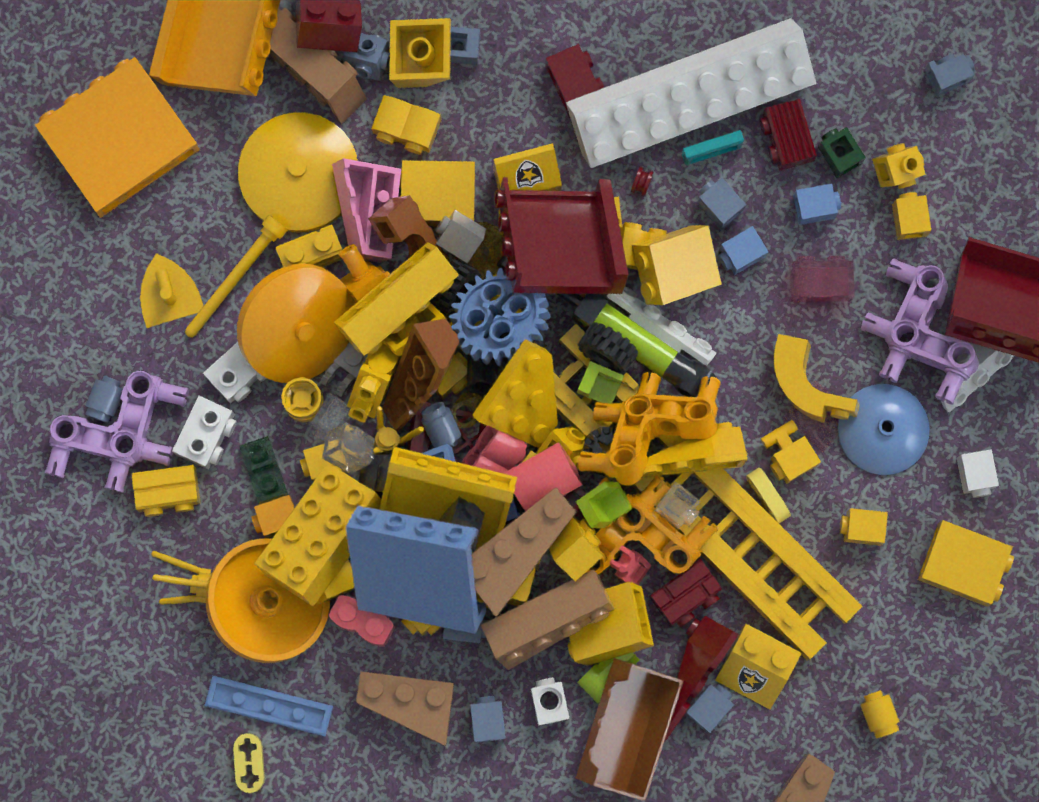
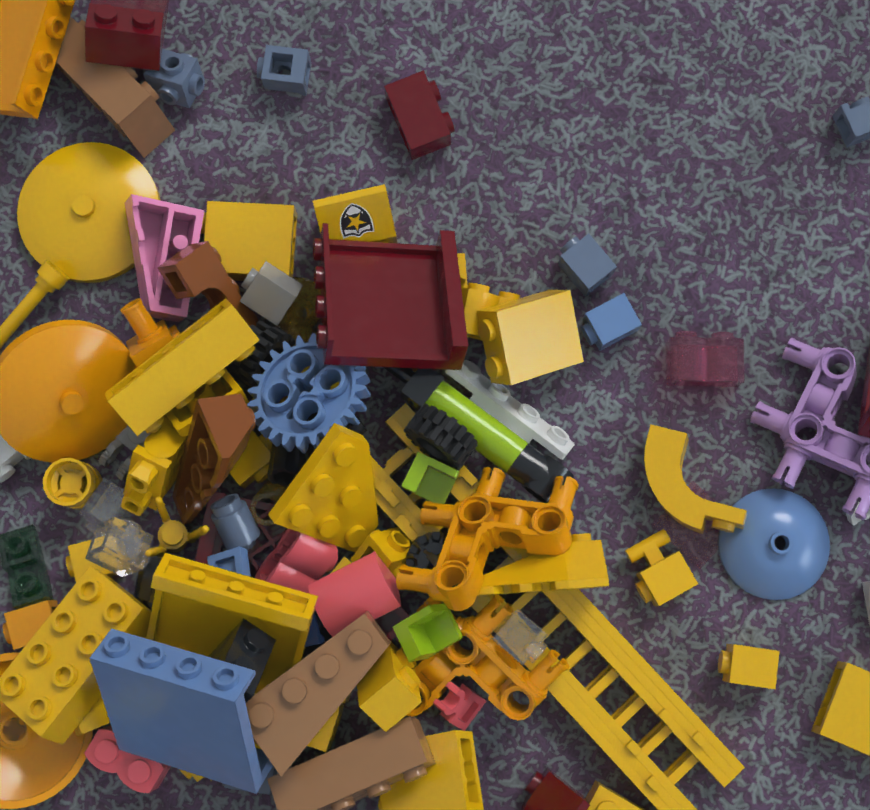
camera: 10 degrees right, 0 degrees up
(313, 248) = (95, 302): yellow brick -> none
(406, 124) = (217, 160): yellow brick -> none
(419, 52) = (234, 74): yellow slope -> none
(642, 181) = (493, 235): dark red bush -> none
(686, 593) = (524, 742): dark red brick -> none
(691, 92) = (556, 131): white brick -> none
(712, 147) = (578, 198): teal tile -> none
(768, 495) = (632, 621): light yellow beam -> none
(788, 135) = (669, 186): dark red brick -> none
(816, 204) = (701, 269): medium blue brick -> none
(841, 139) = (738, 196): dark green brick -> none
(899, 166) = (802, 227): yellow brick -> none
(911, 216) = (815, 287): yellow brick -> none

